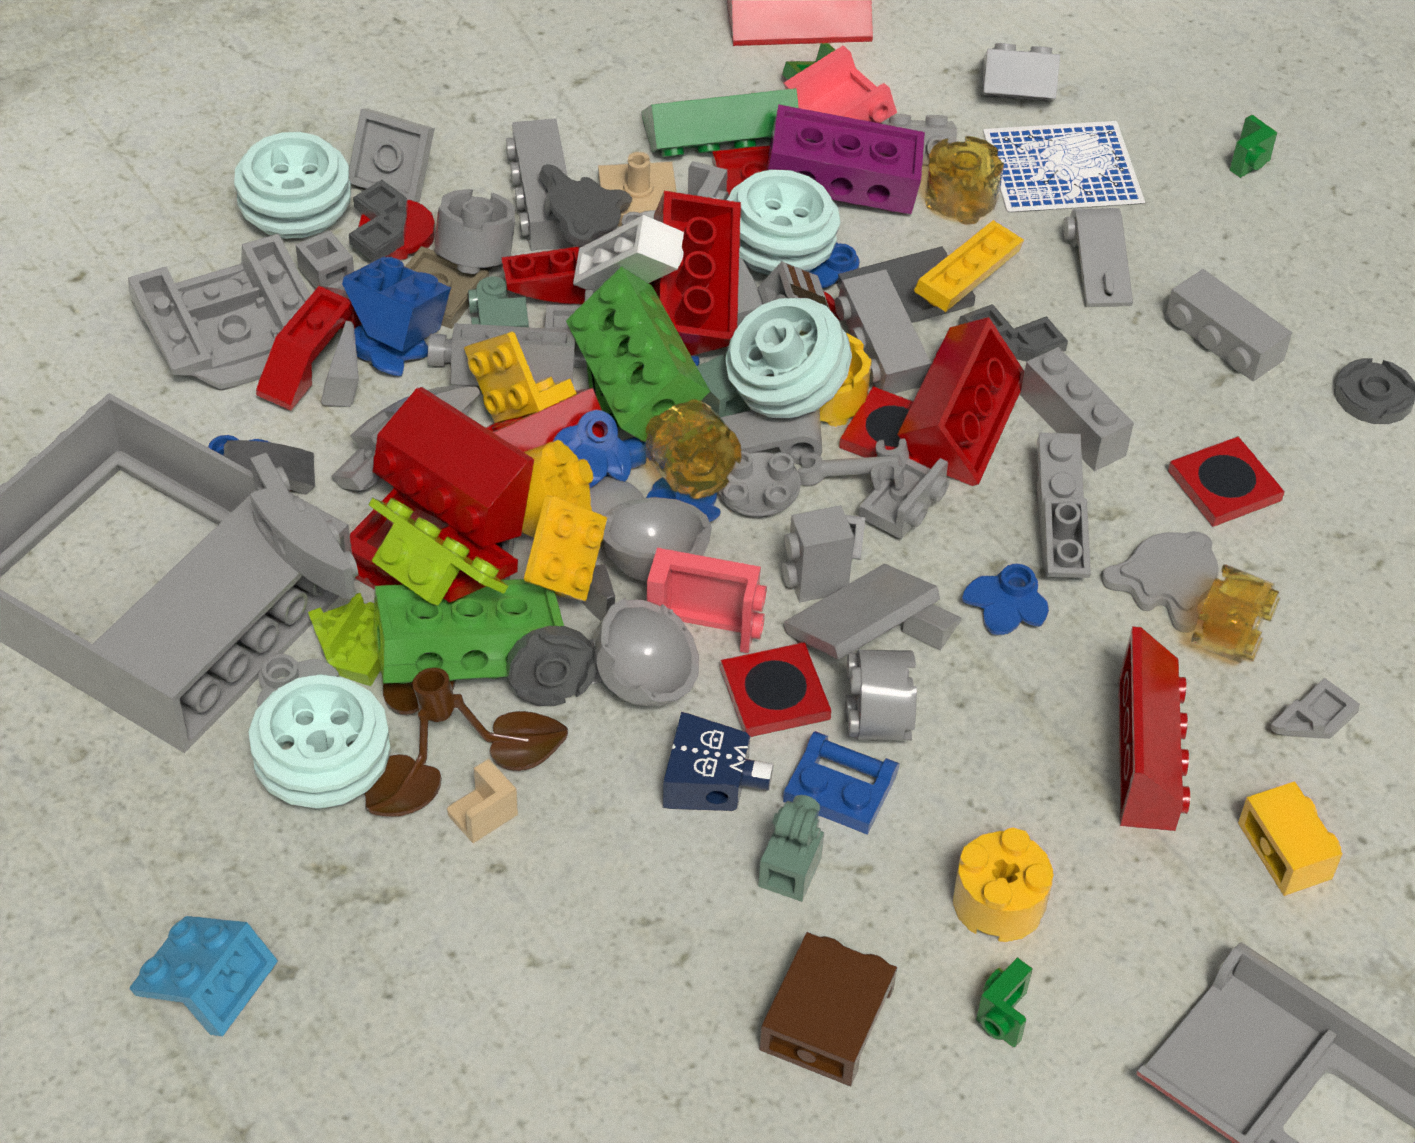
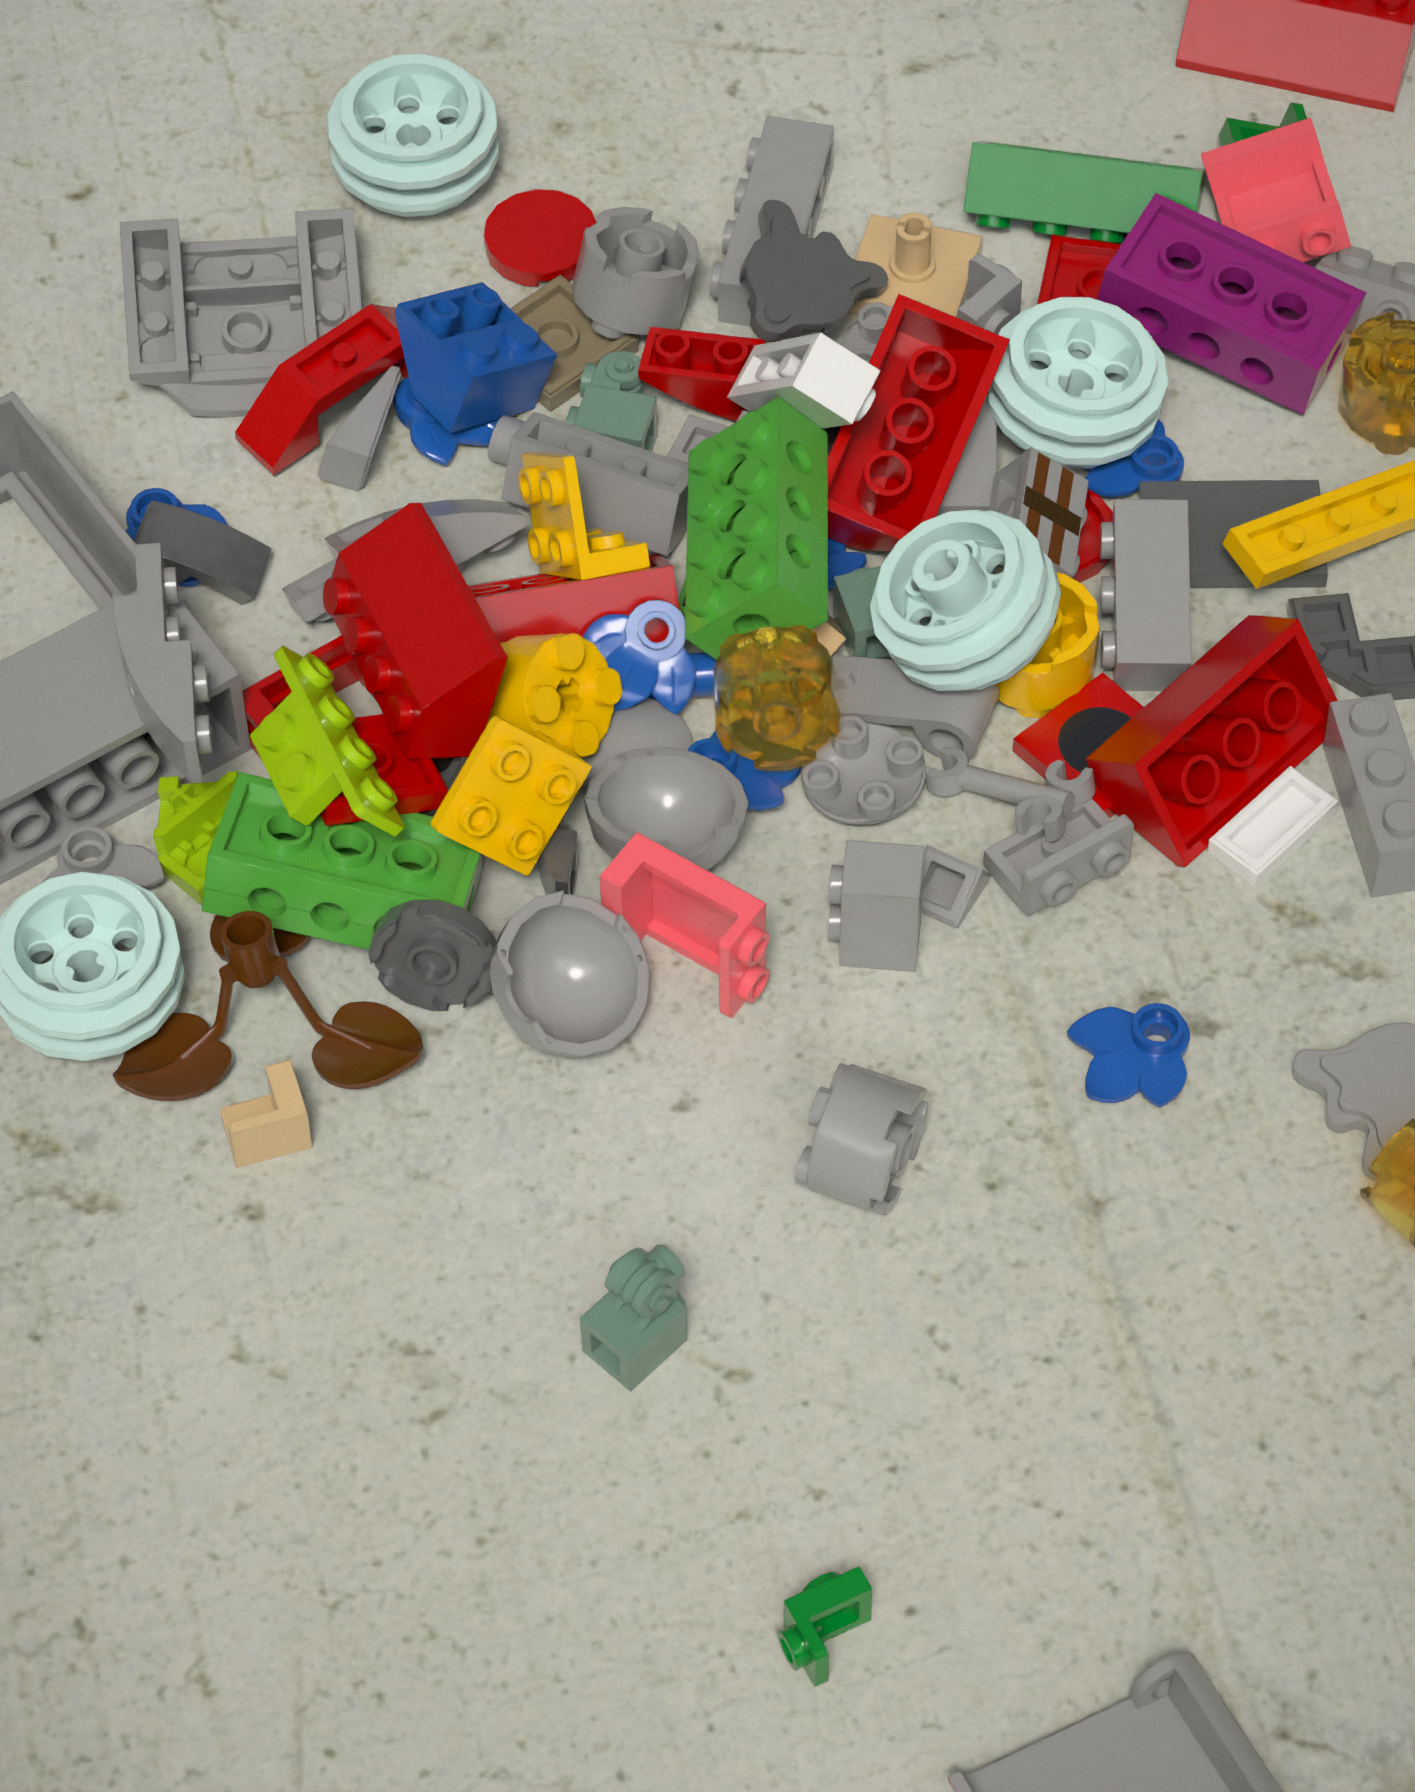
camera: 25 degrees right, 5 degrees up
(324, 260) = (410, 261): light grey brick -> none
(388, 221) = (519, 239): dark grey tile -> none
(391, 152) = (570, 123): light grey tile -> none
(711, 767) = (588, 1164): dark blue torso -> none
(775, 689) = (737, 1082): red tile -> none
(827, 1008) = (579, 1544): reddish brown panel -> none
(840, 795) = (748, 1258): blue plate -> none
(862, 611) = (907, 1007): light grey tile -> none
(932, 626) = (1005, 1053): light grey slope -> none
(1002, 884) = (900, 1460): yellow brick -> none
(1016, 447) = (1272, 826): none -> white tile
(1062, 506) = (1280, 938): light grey slope -> none
(1151, 736) = (1223, 1315): red slope -> none
(1290, 838) = (1351, 1530): yellow brick -> none

